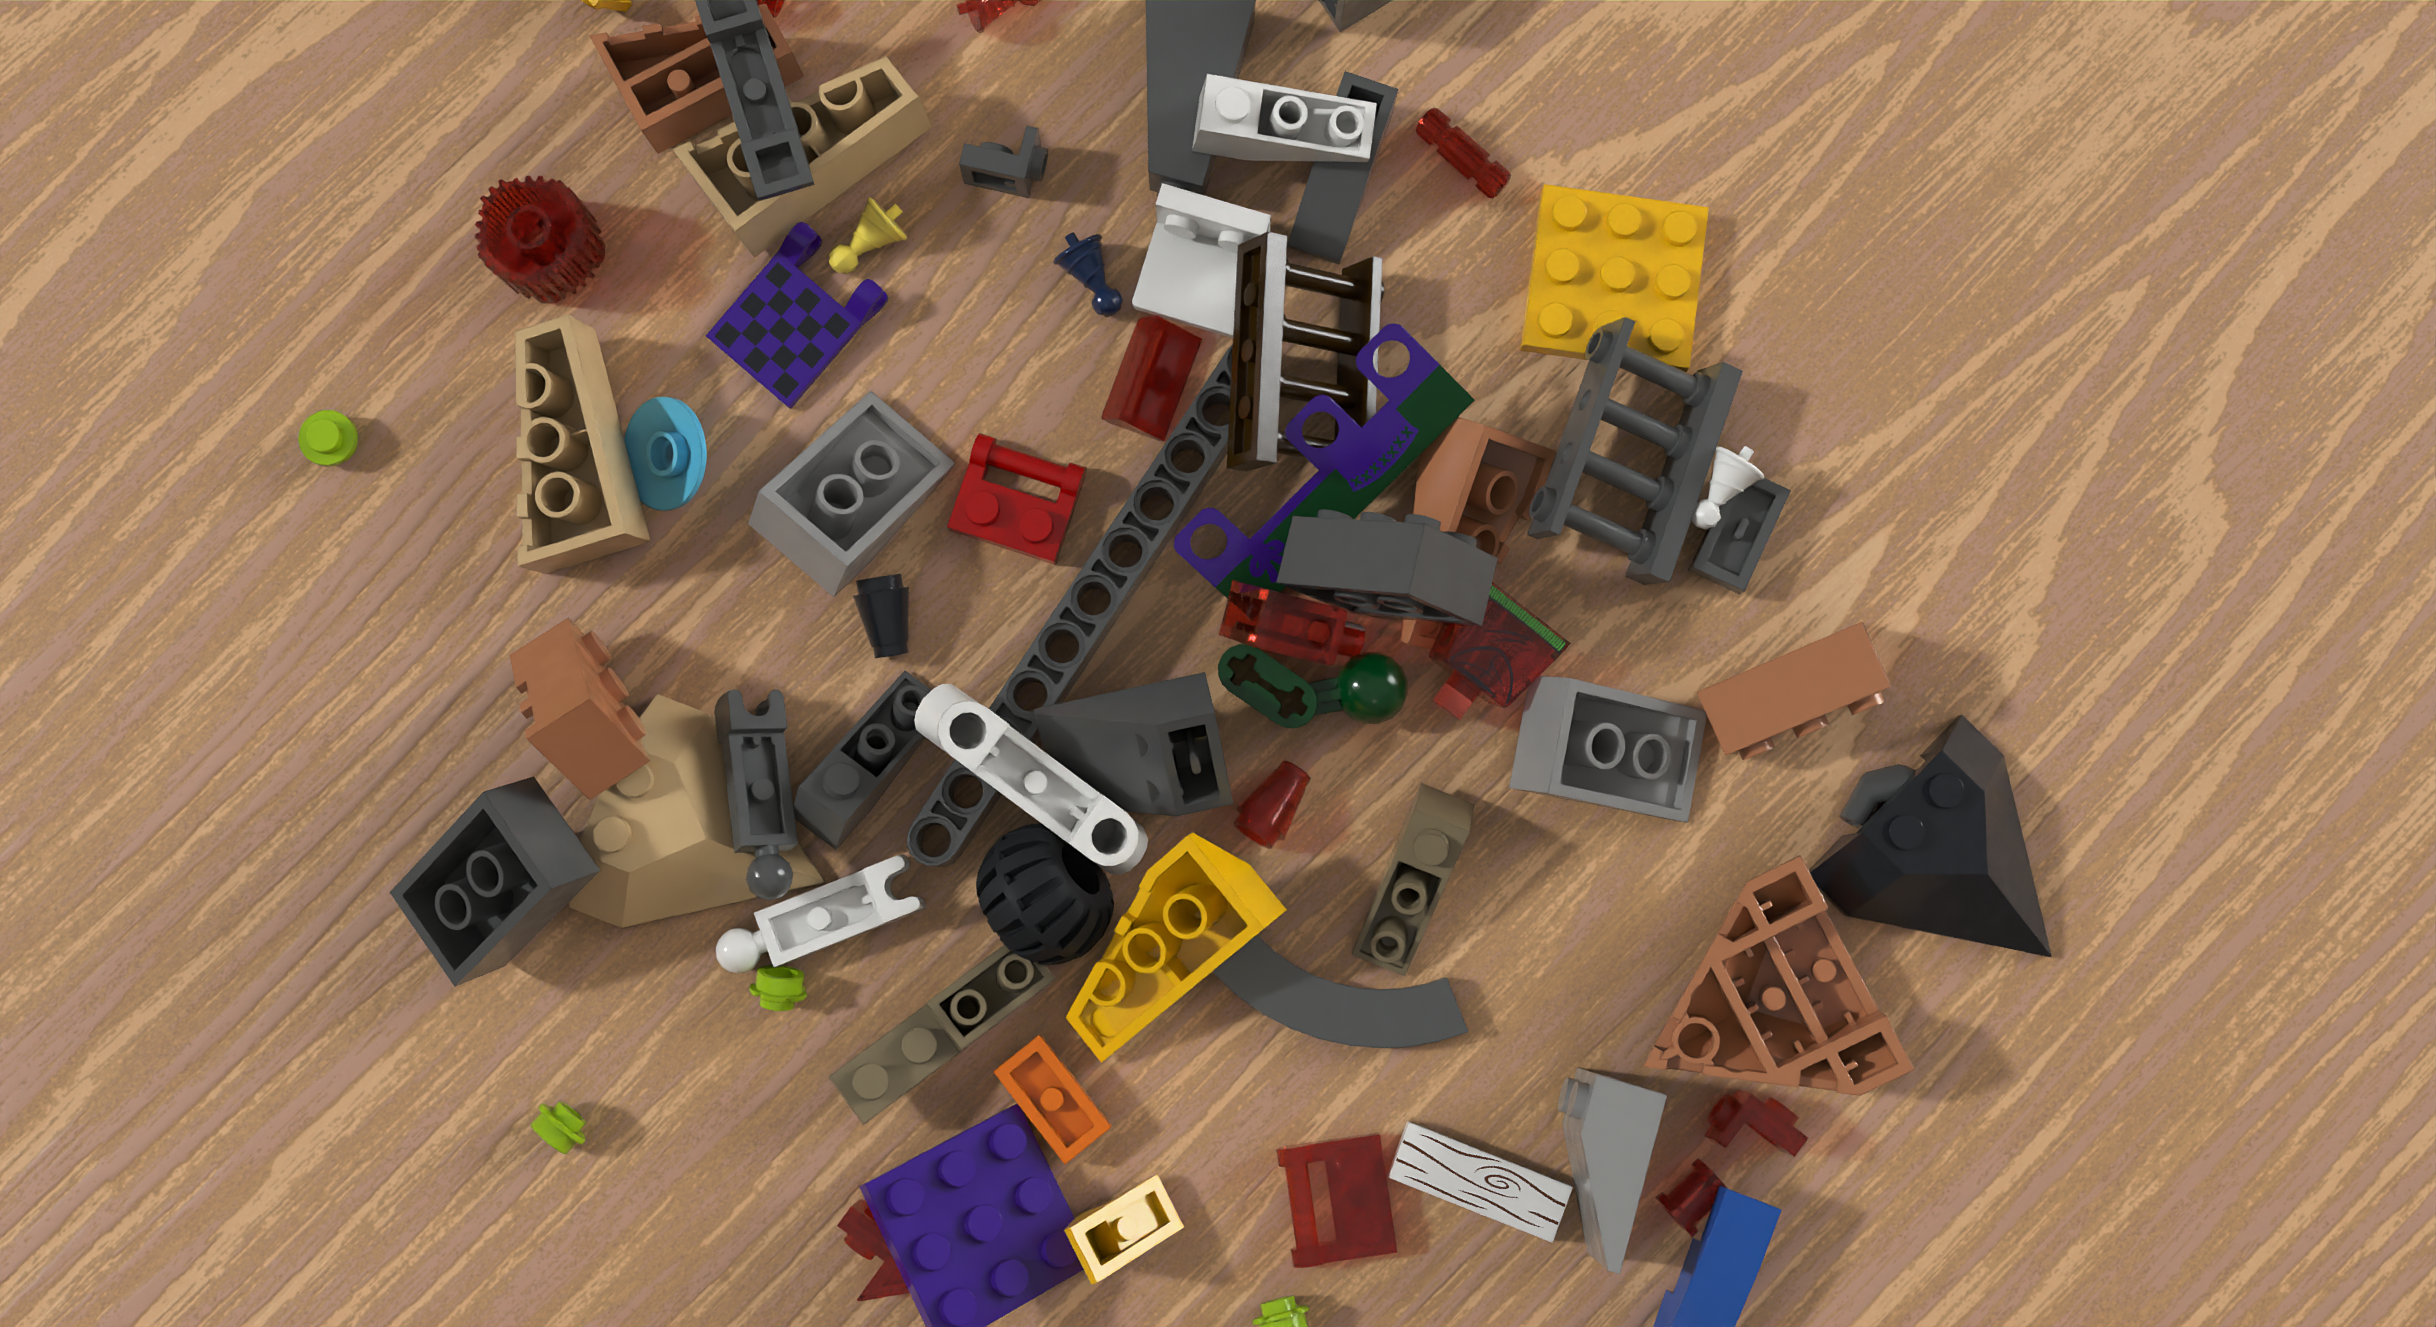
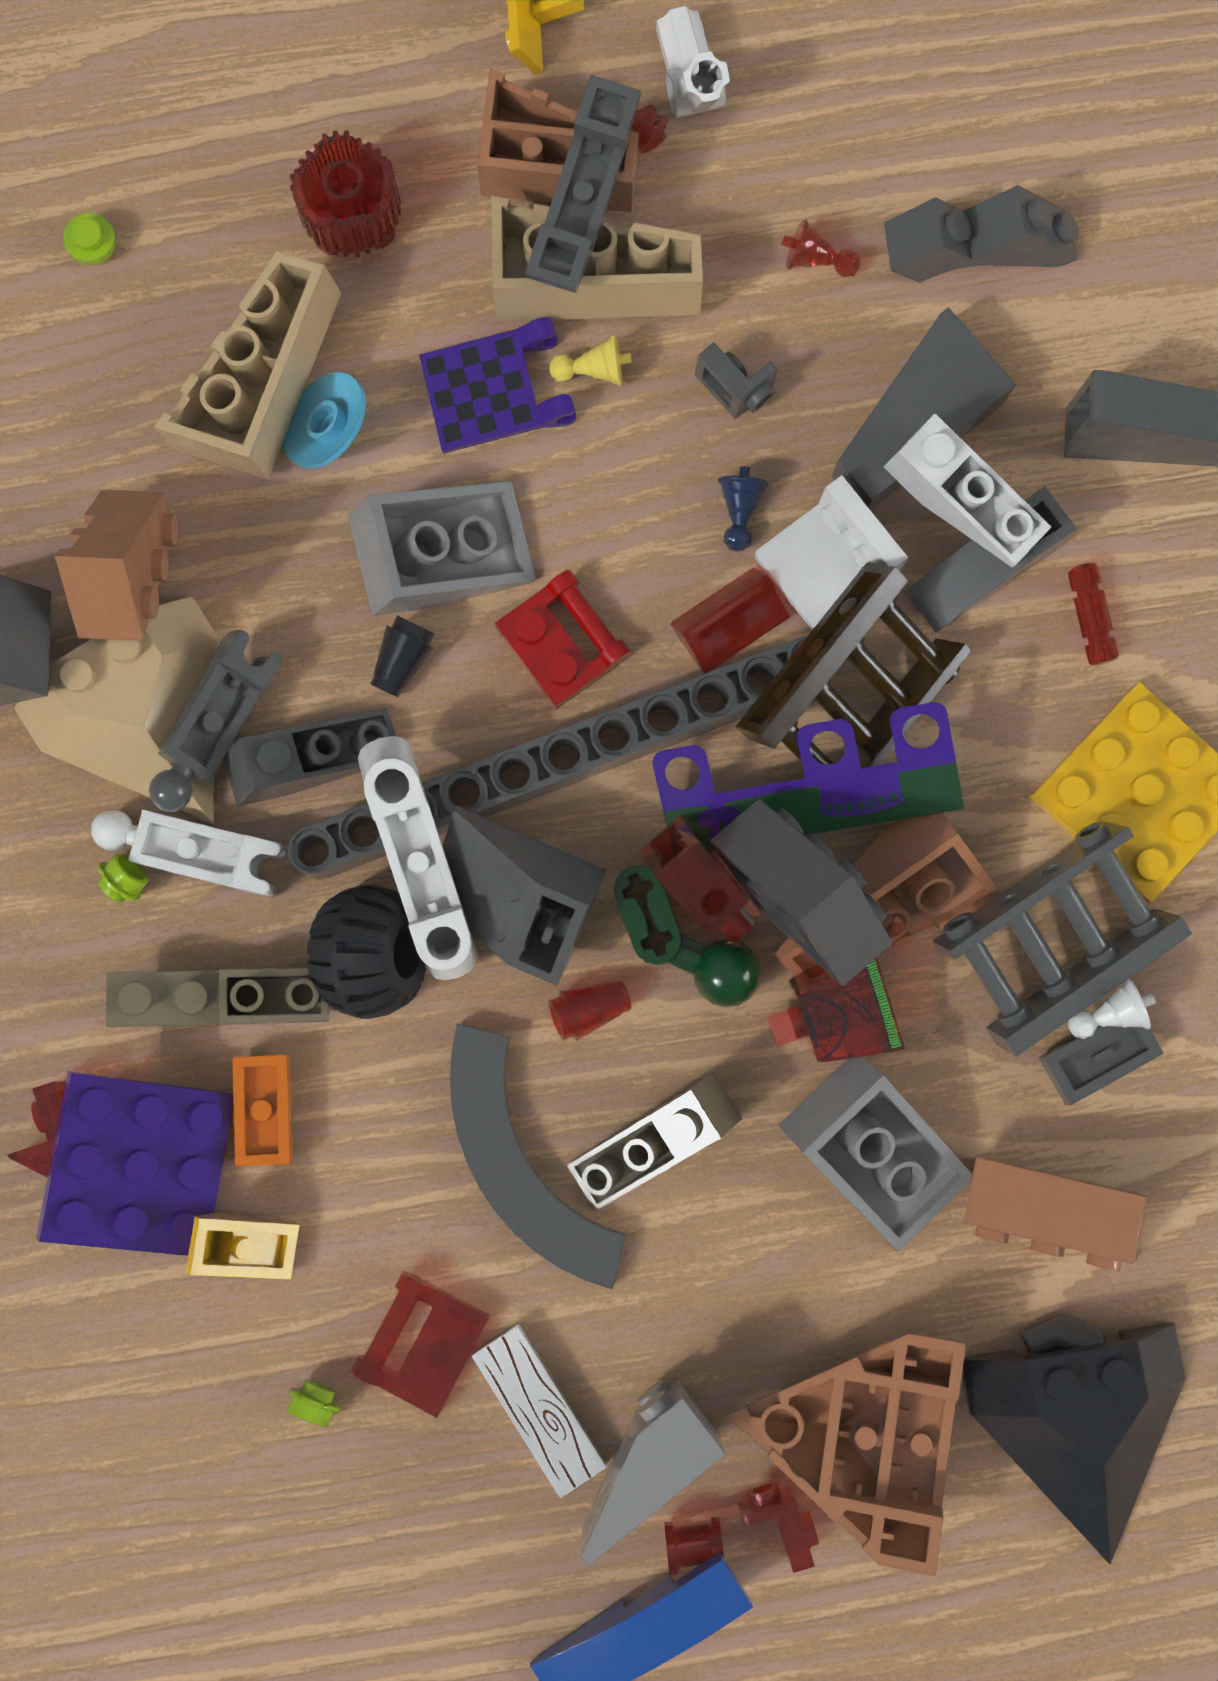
camera: 35 degrees right, 0 degrees up
(1181, 926) = (448, 1051): yellow wedge -> none

